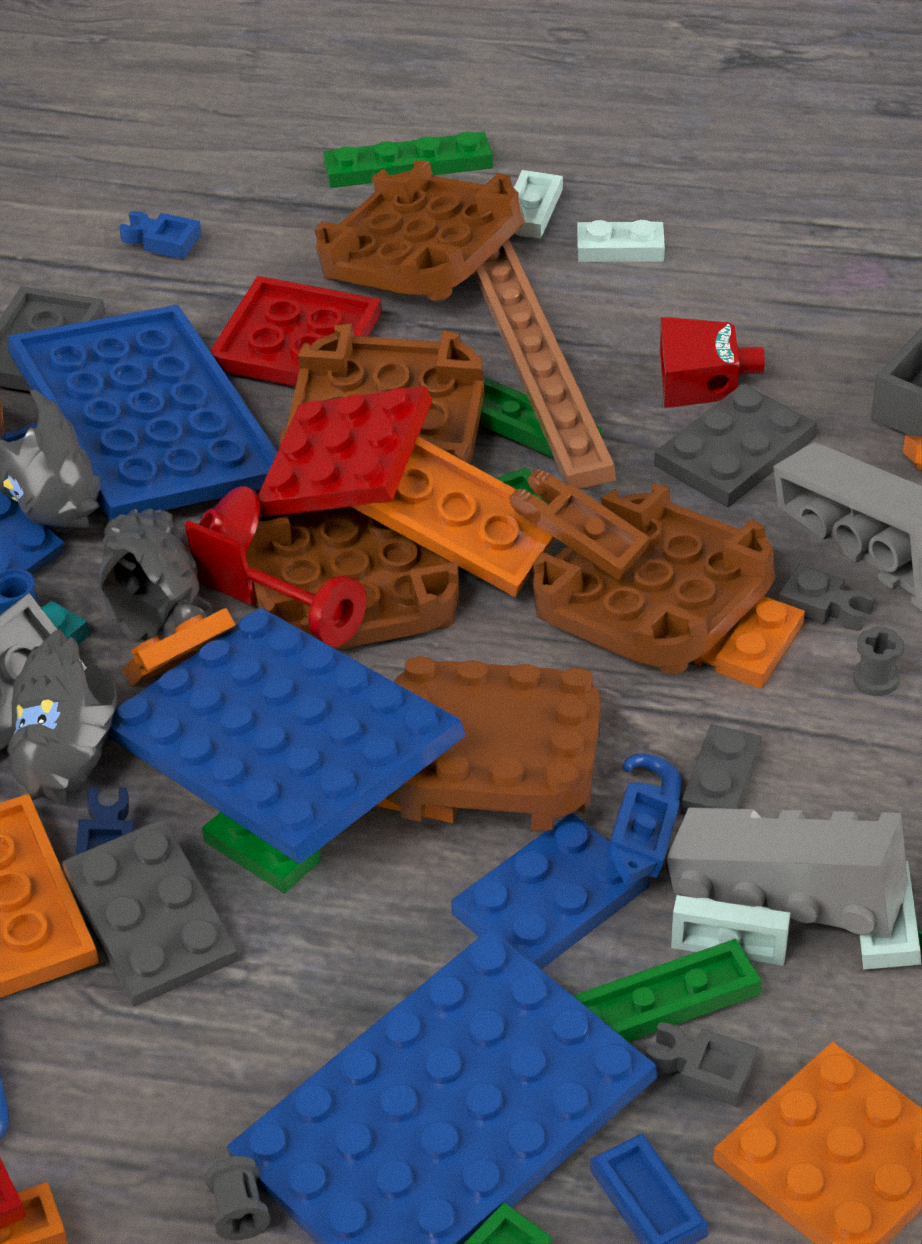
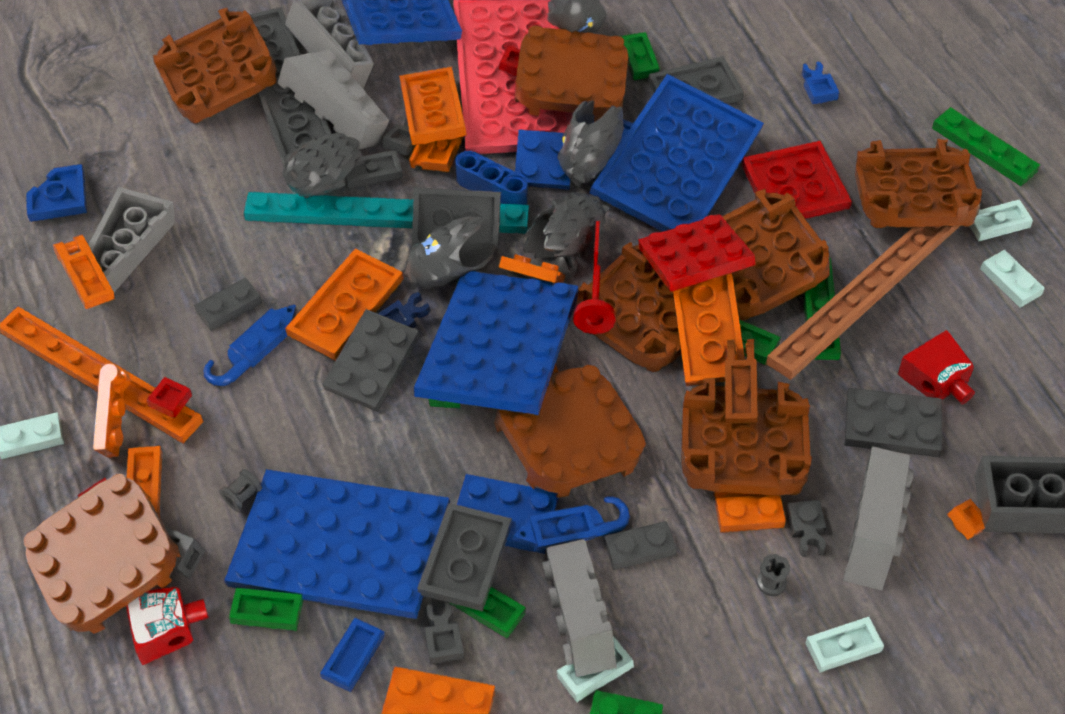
camera: 55 degrees right, 10 degrees up
(235, 515) = (620, 239): red dish -> none
(610, 956) = (465, 556): none -> dark grey plate
(706, 923) = (528, 591): light aqua plate -> none

